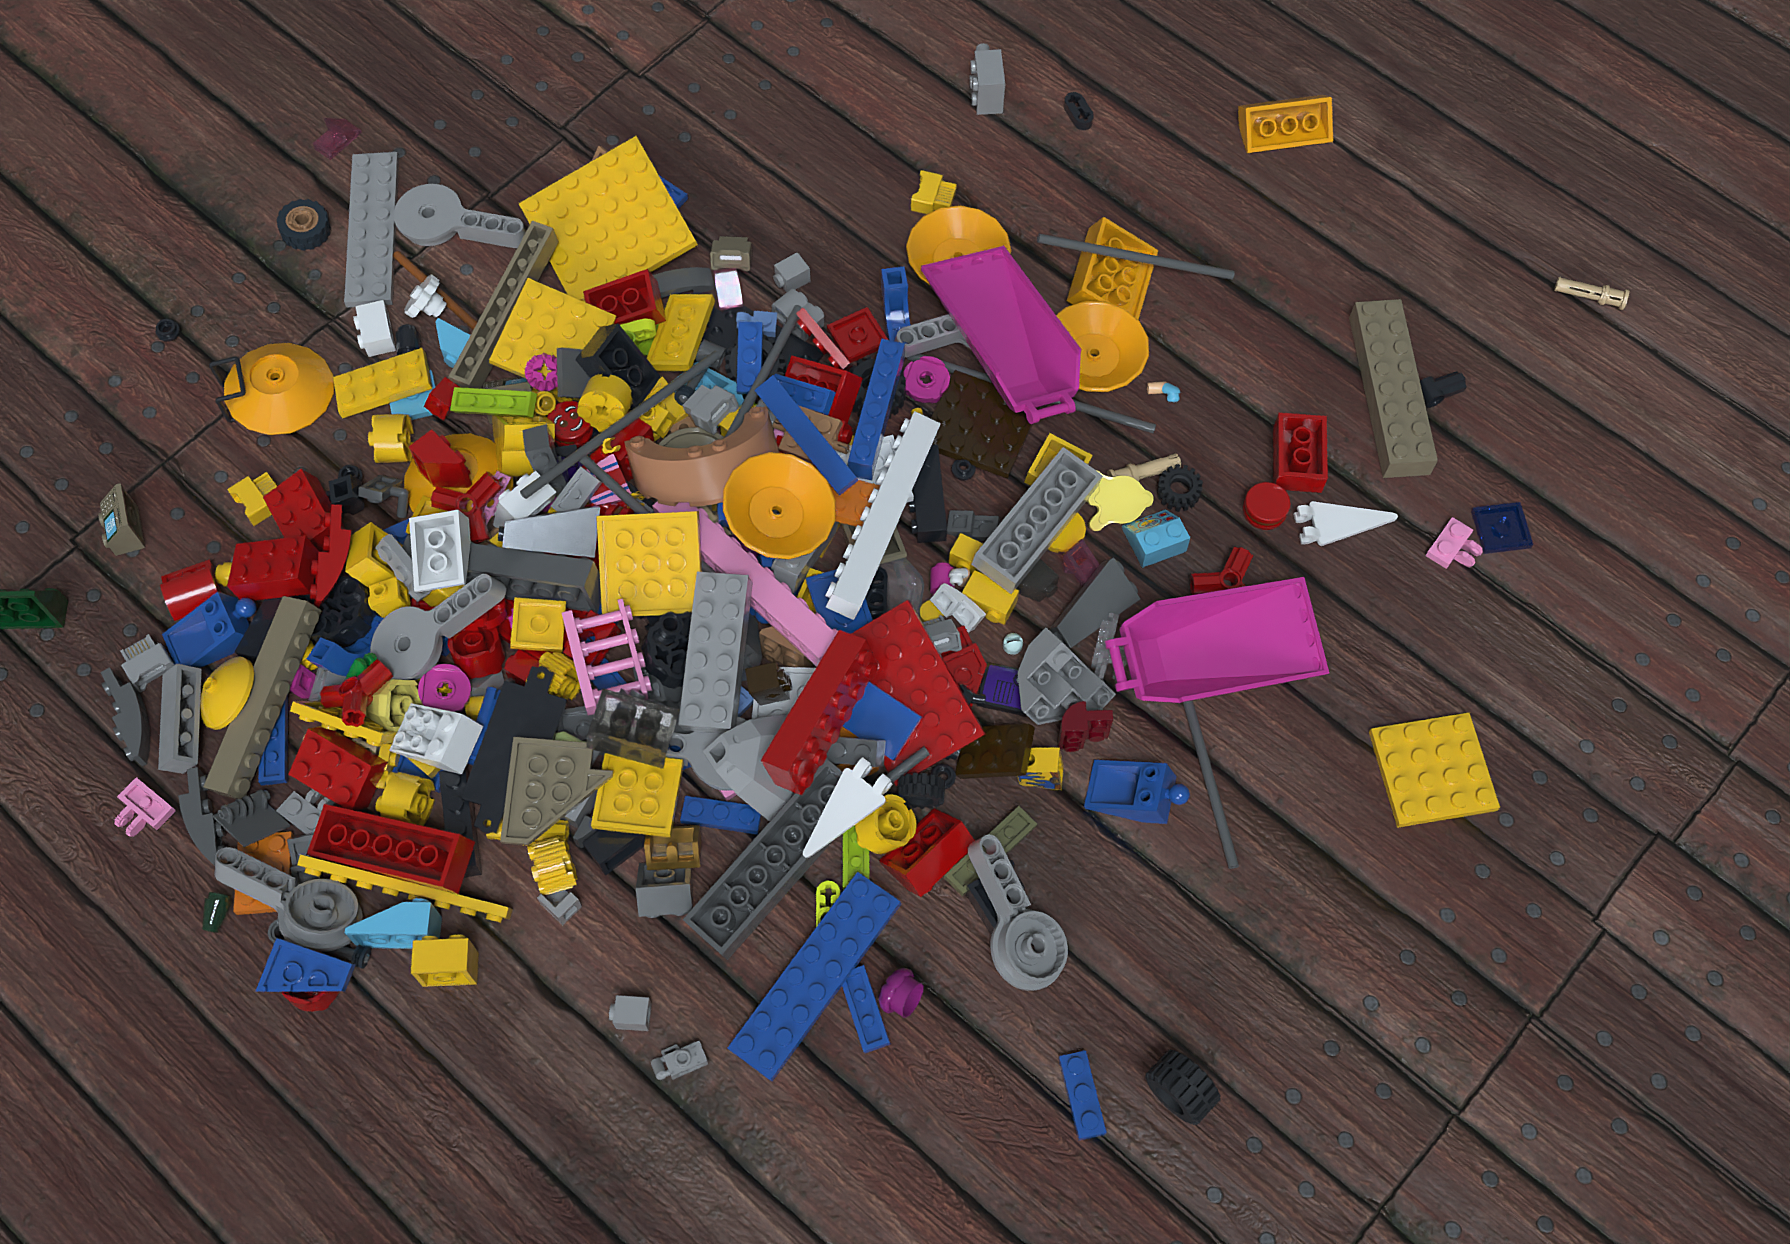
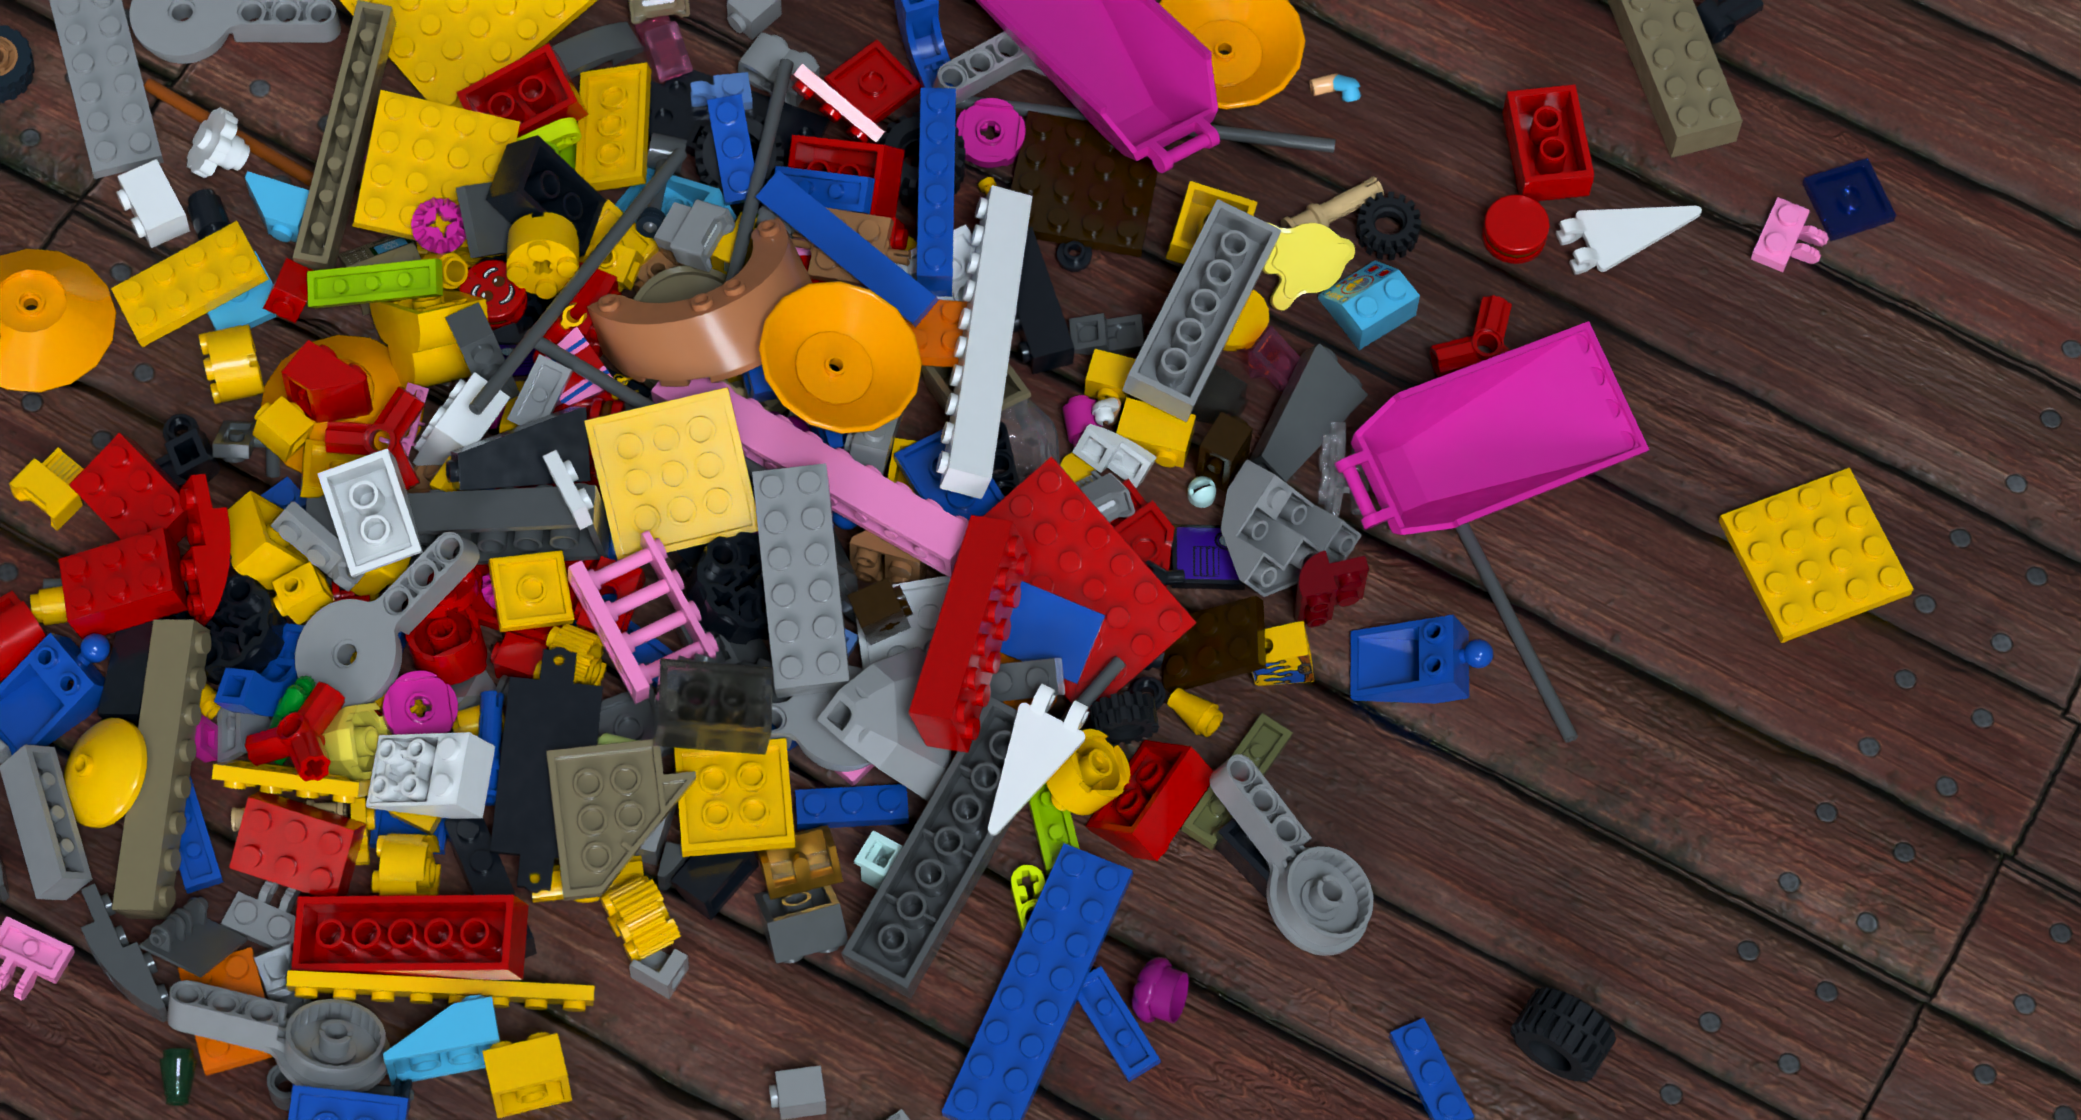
camera: 15 degrees left, 0 degrees up
(409, 485) = (282, 427): none -> yellow brick
(574, 568) = (564, 478): none -> white plate
(724, 855) = (876, 858): none -> light aqua brick
(974, 797) = (1196, 712): none -> yellow cone
(1032, 617) = (1224, 450): none -> dark brown brick

